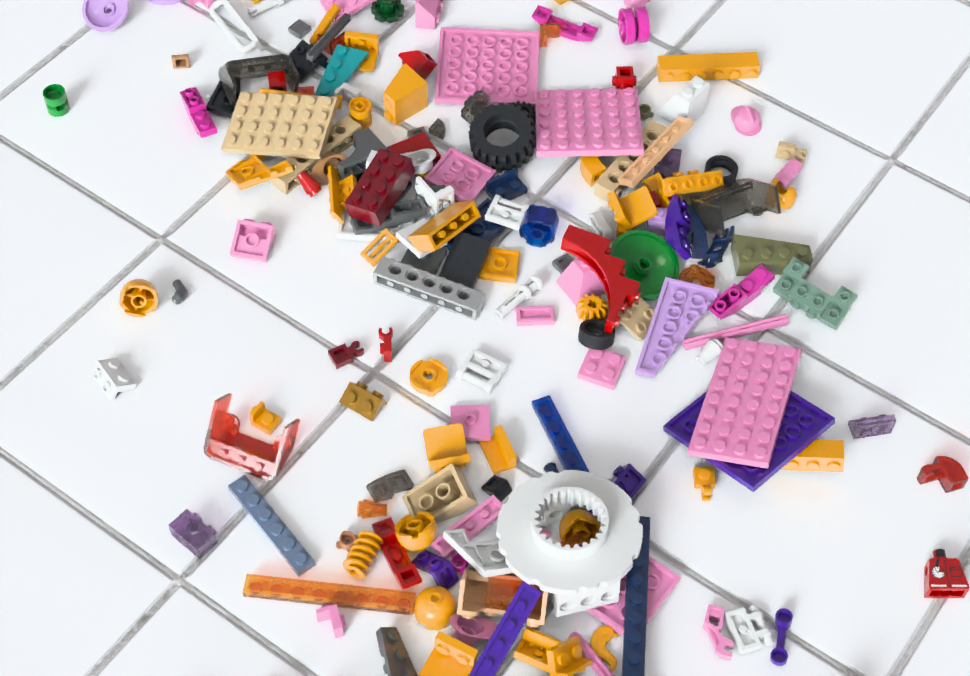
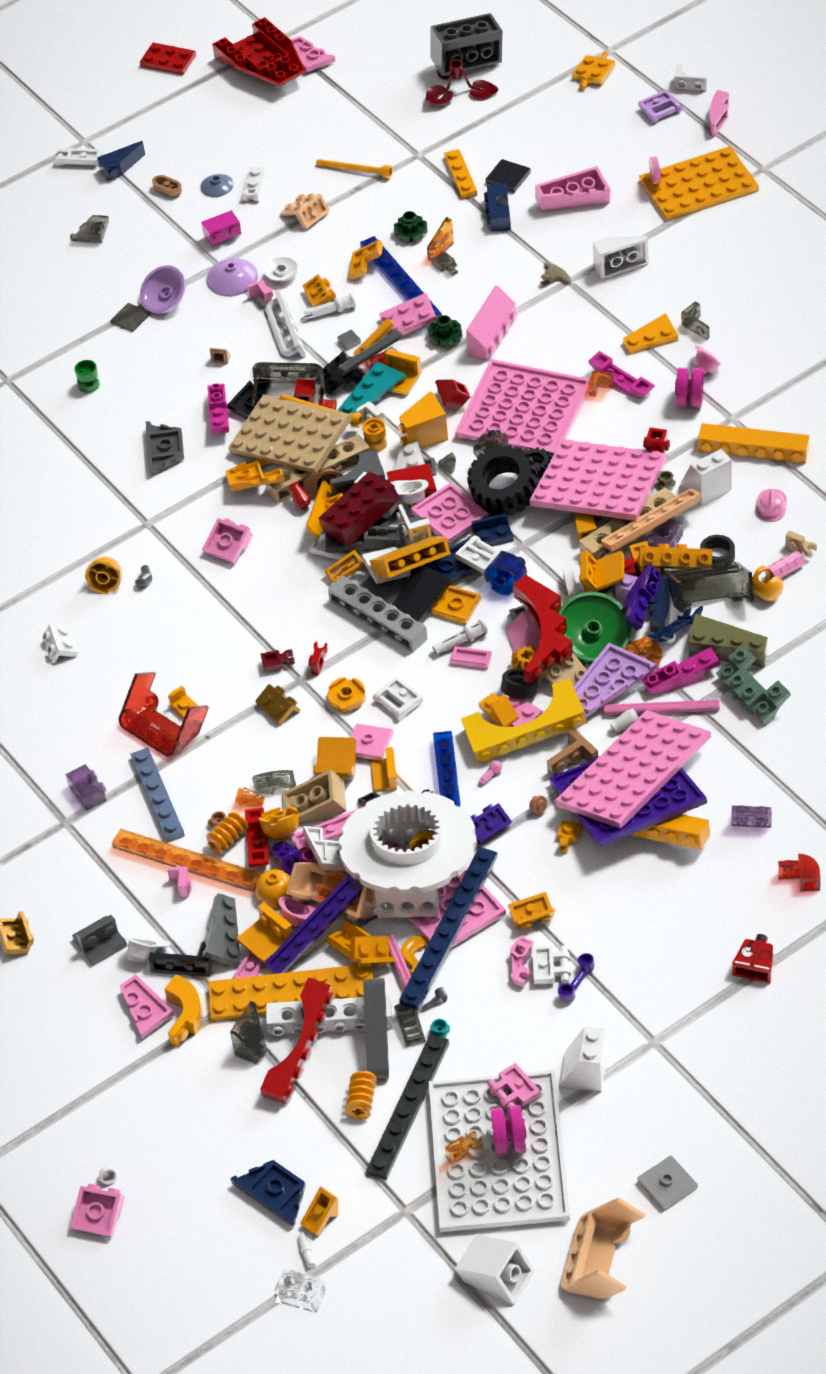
camera: 25 degrees right, 5 degrees down
(79, 38) = (130, 317): none -> clear smoke piece
(155, 157) = (163, 446): none -> dark grey wing
(400, 129) = (409, 456): none -> white wing
(590, 365) = (499, 709): none -> light orange slope
(592, 398) = (493, 741): none -> yellow arch
(604, 425) = (494, 768): none -> bright pink piece
(664, 455) = (538, 804): none -> nougat plate
(680, 389) = (577, 749): none -> medium nougat bracket
(706, 573) = (531, 910): none -> light orange bracket

